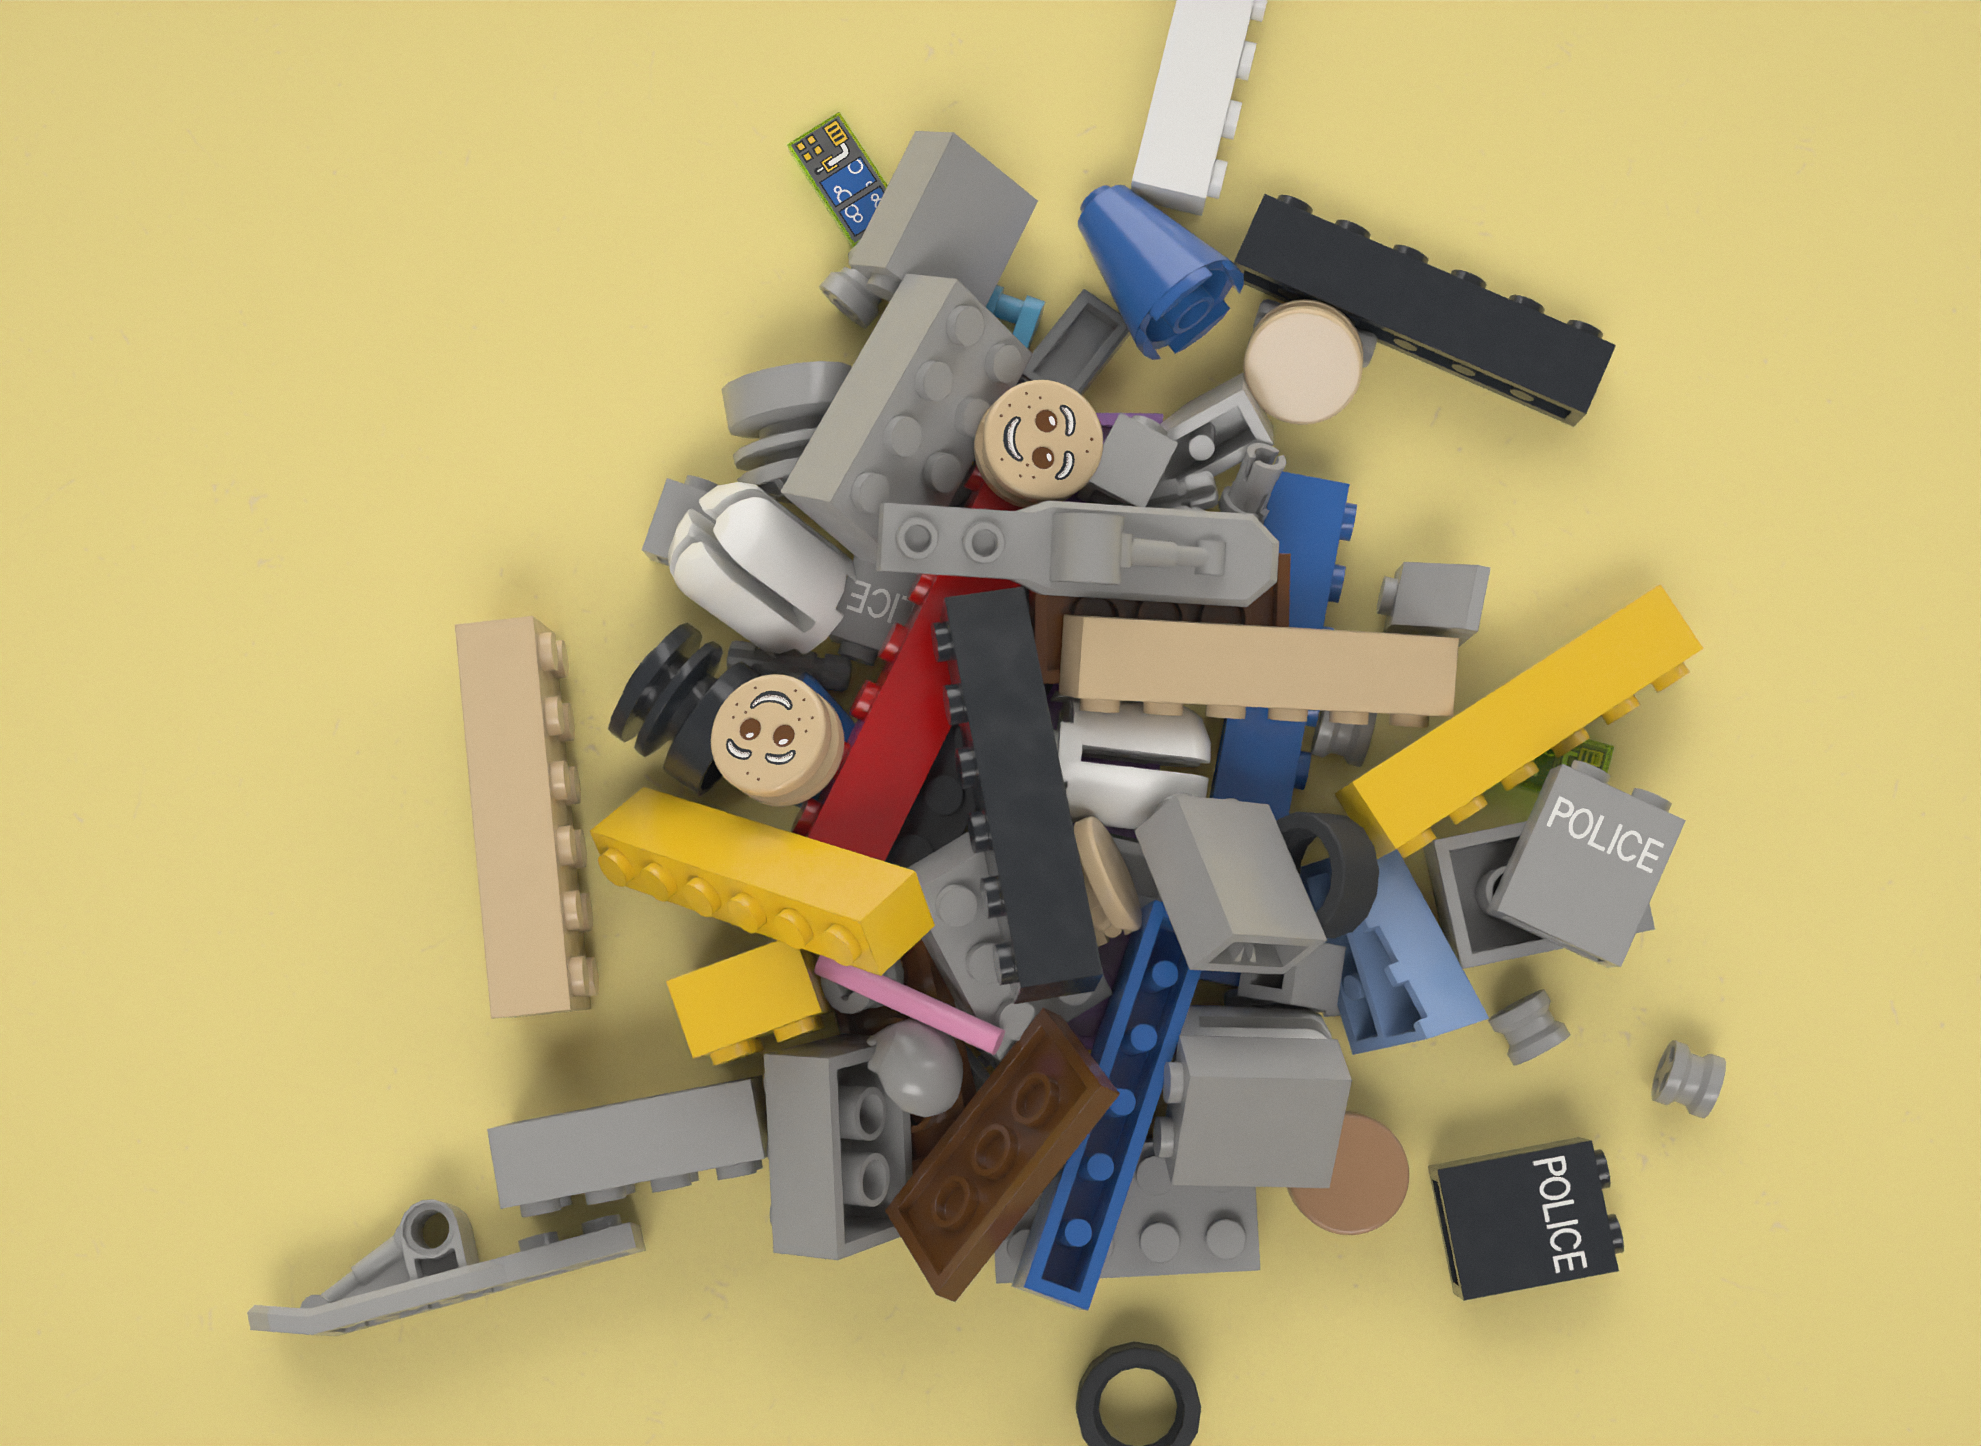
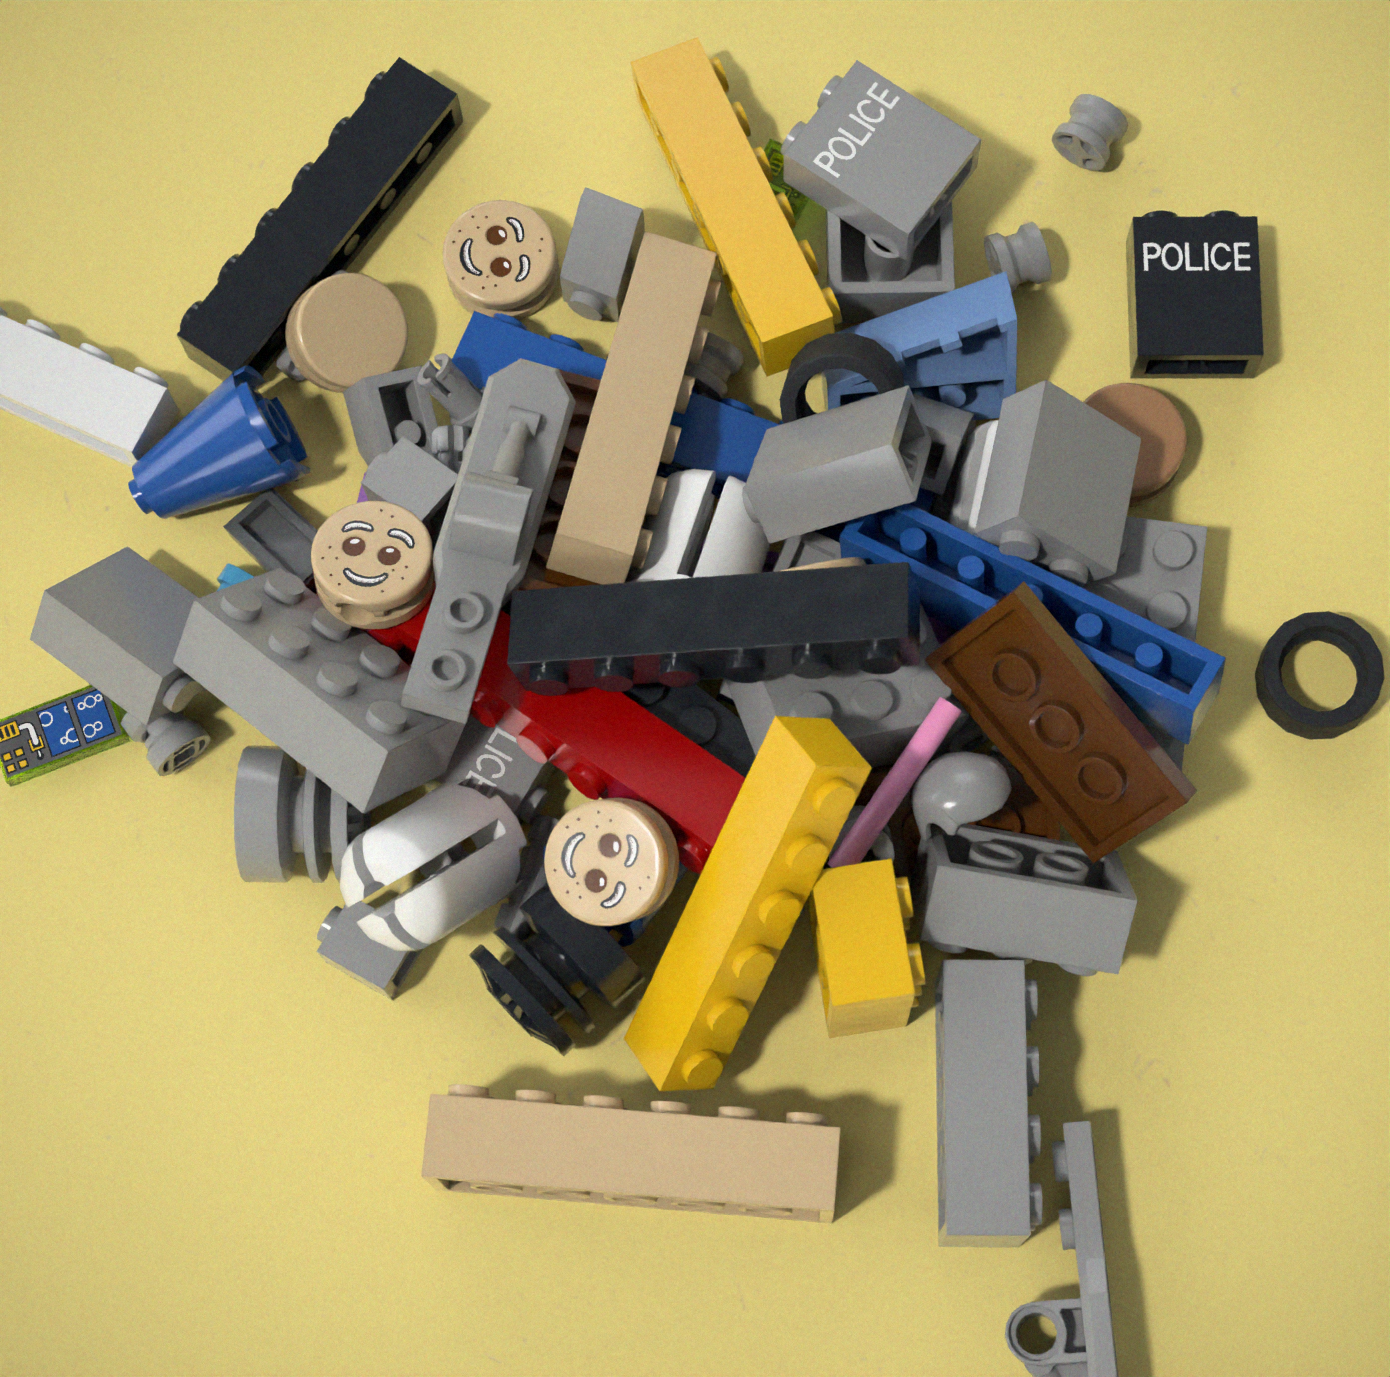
camera: 80 degrees left, 10 degrees down
(1419, 498) = (501, 259): none -> tan head

